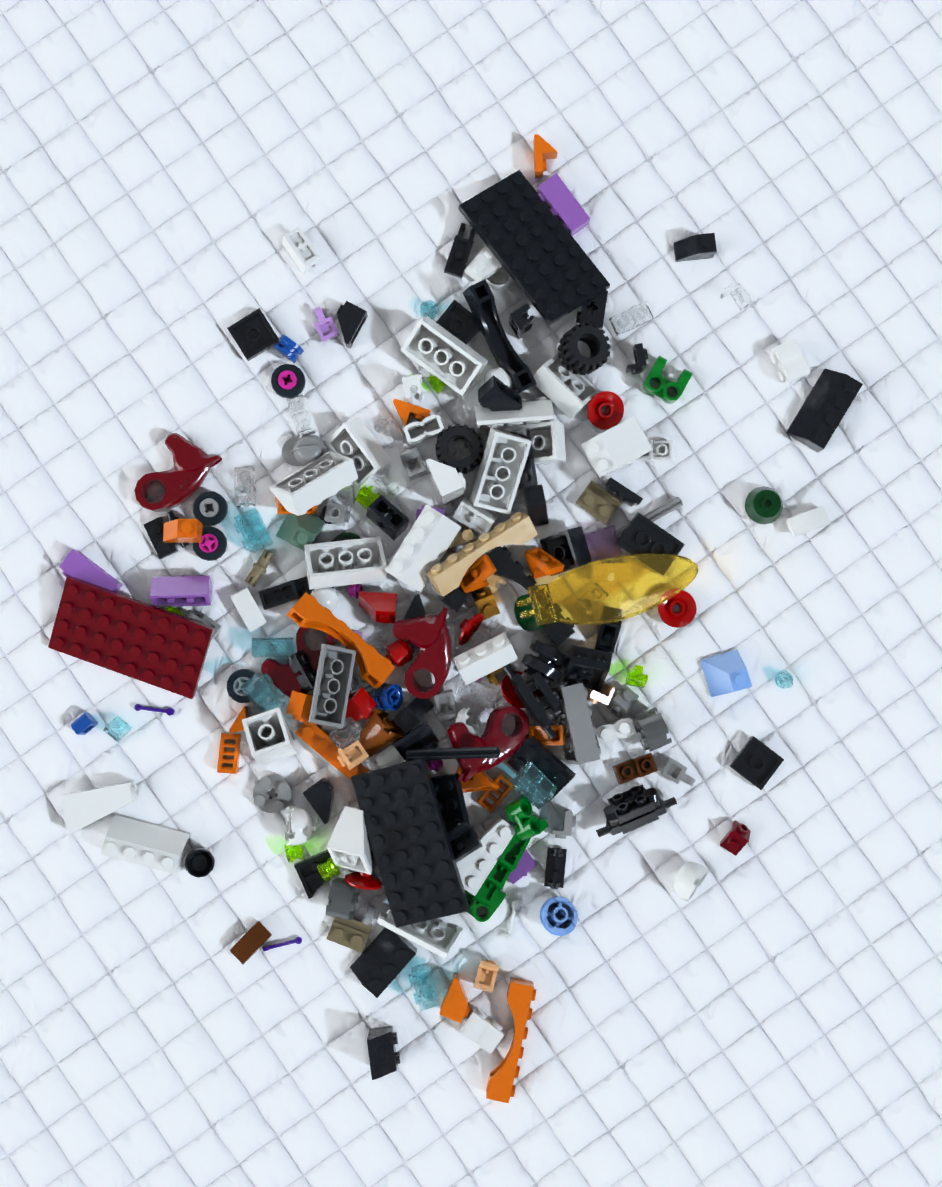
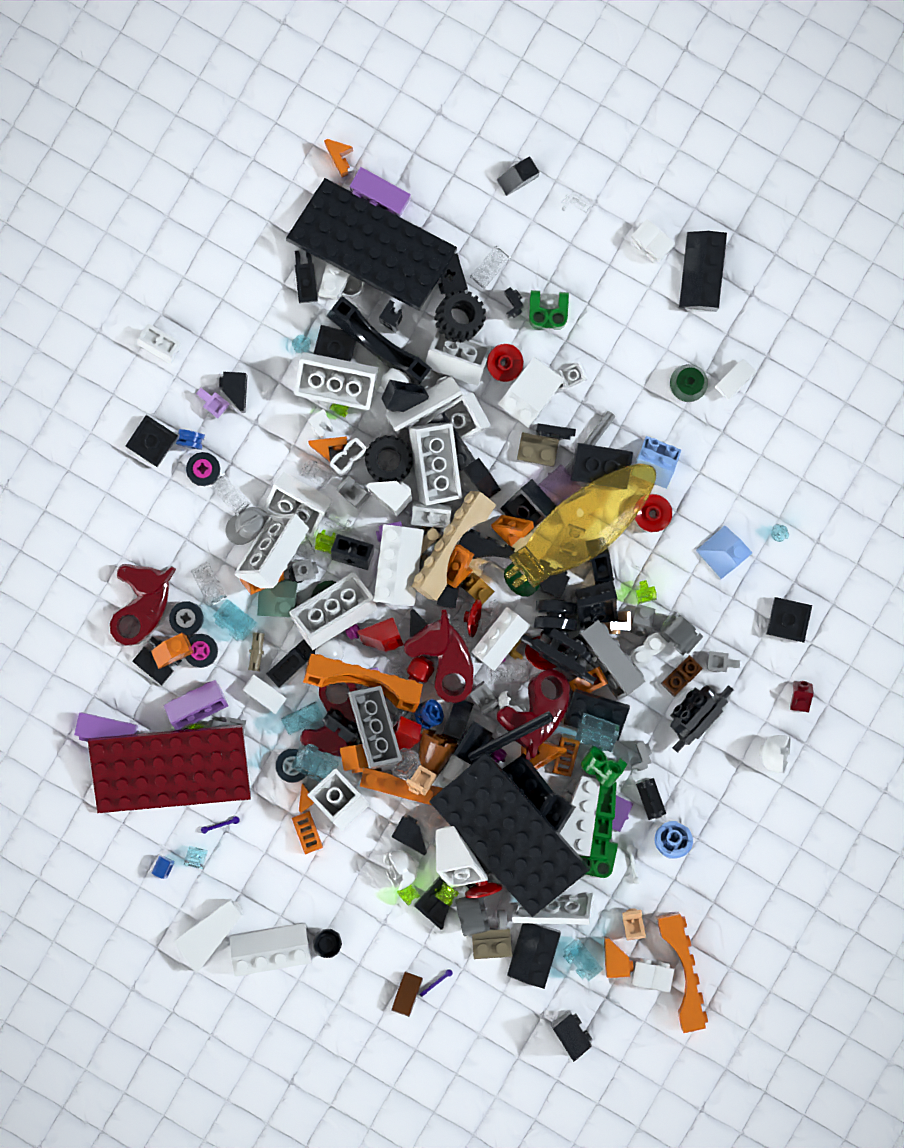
camera: 25 degrees left, 0 degrees up
(262, 798) = (372, 857): light grey plate -> none
(708, 560) = (661, 457): none -> light blue slope

